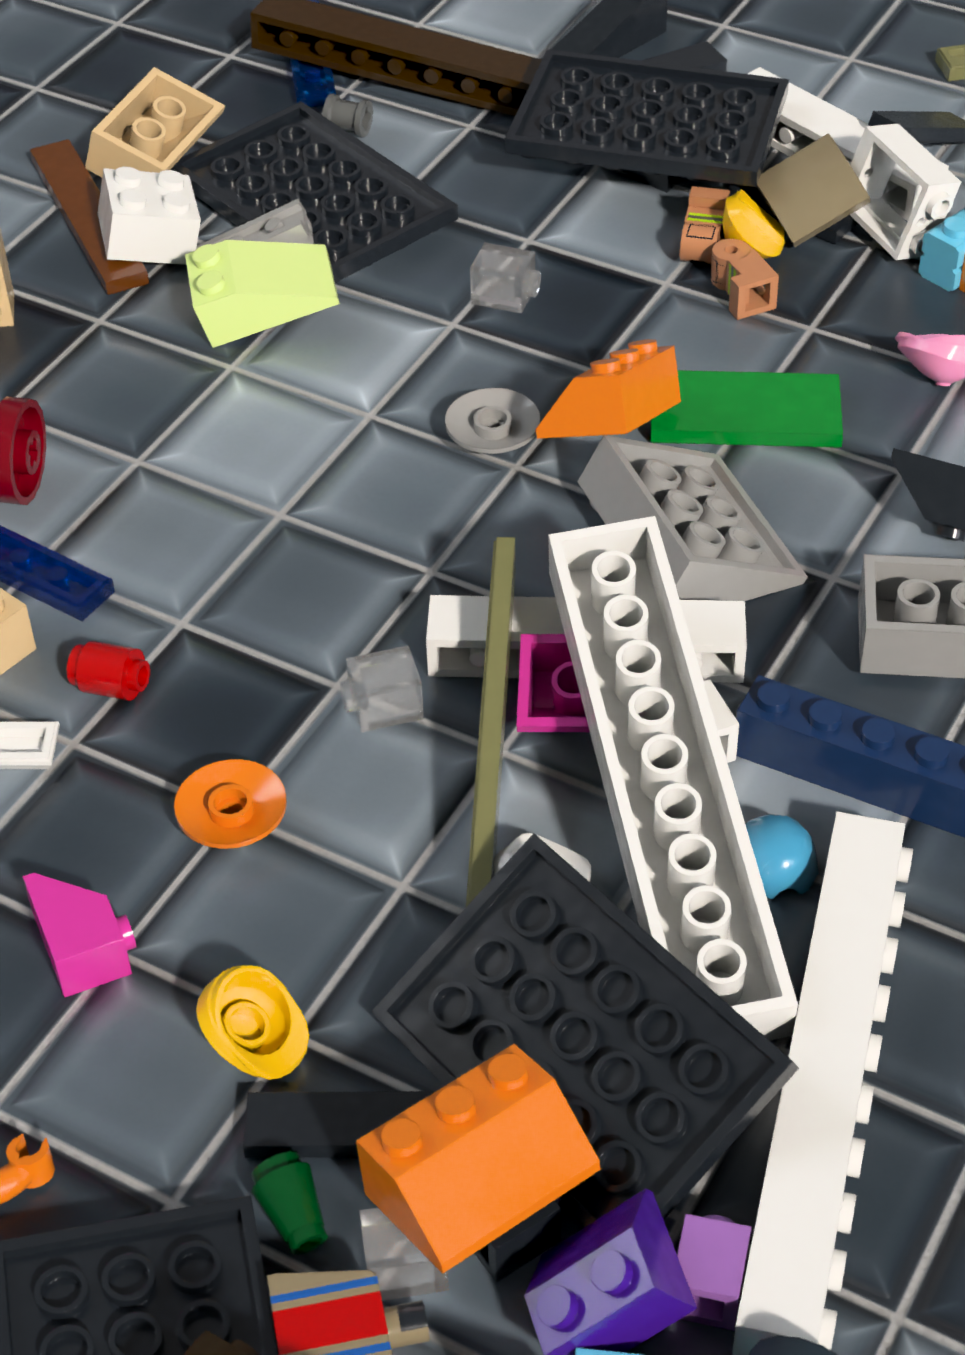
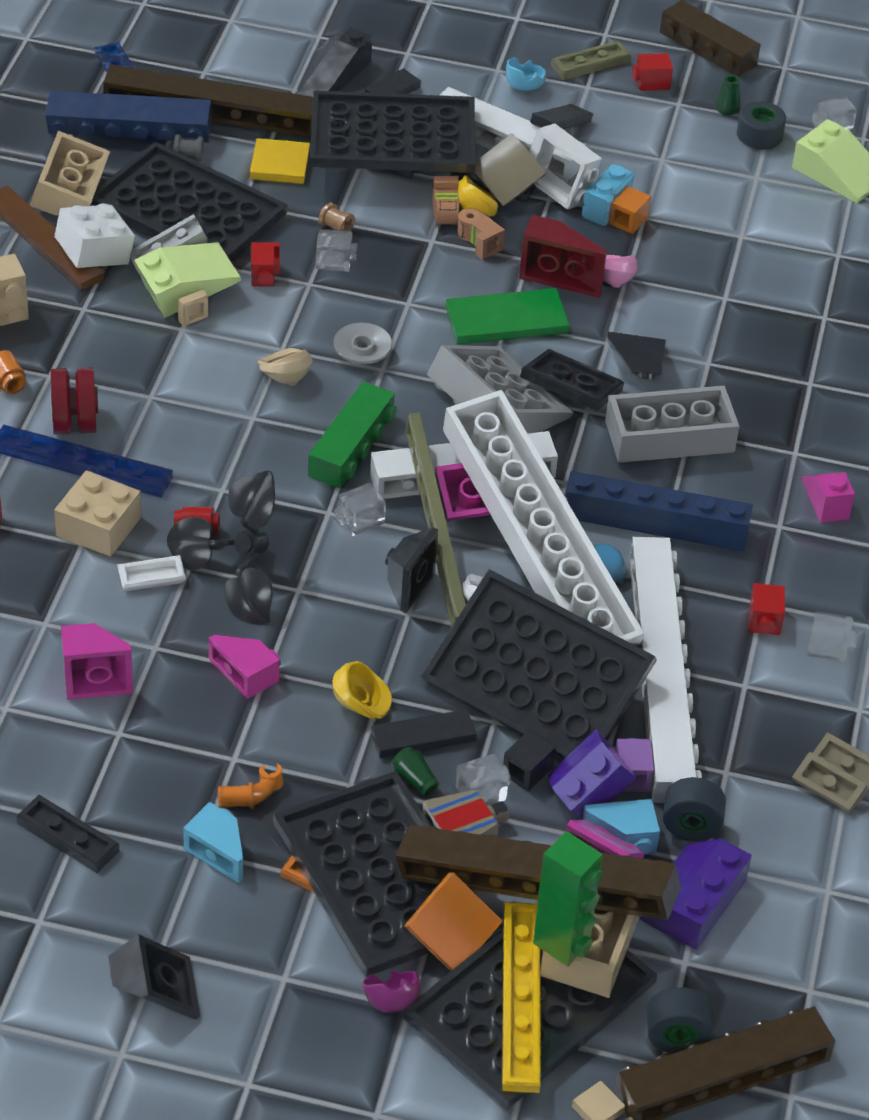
camera: 20 degrees left, 0 degrees up
(162, 648) = (254, 501): none -> black plant
(230, 803) = (301, 583): orange dish -> none
(253, 335) = (193, 307): none -> tan tile
(277, 63) = (128, 116): none -> dark blue brick
(358, 441) = (286, 365): none -> tan hat
(388, 284) = (264, 263): none -> red brick
(416, 561) = (351, 435): none -> green brick
(429, 805) = (412, 566): none -> black slope
(471, 148) = (280, 161): none -> yellow tile
(476, 1157) = (510, 728): orange slope -> none
(525, 234) = (336, 219): none -> medium nougat bush
(616, 393) = (440, 319): orange slope -> none
(819, 521) = (572, 379): none -> black tile
(855, 326) = (561, 257): none -> dark red slope
(886, 69) = (526, 76): none -> medium azure hair

